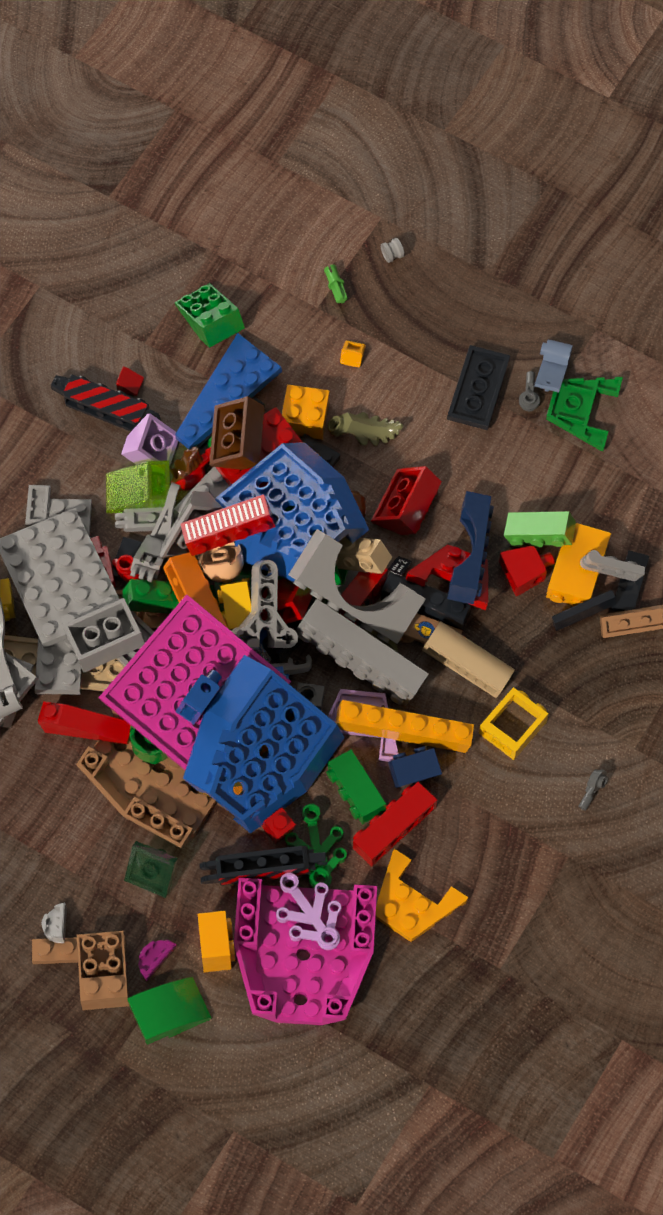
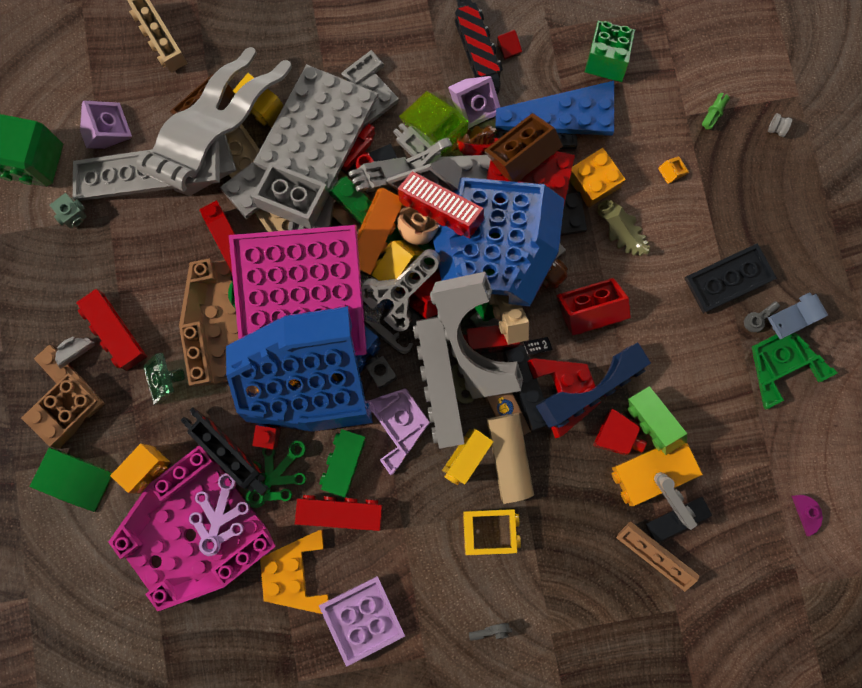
camera: 50 degrees right, 15 degrees up
(69, 878) = (111, 330): none -> red brick
(153, 956) = (103, 434): magenta plate -> none
(199, 696) = (279, 304): blue torso -> none
(404, 726) = (414, 459): light orange brick -> none
(414, 767) = (392, 491): dark blue brick -> none
(439, 686) = (467, 457): none -> yellow window
(496, 874) = (361, 621): none -> lavender plate
(584, 610) = (624, 507): black tile -> none

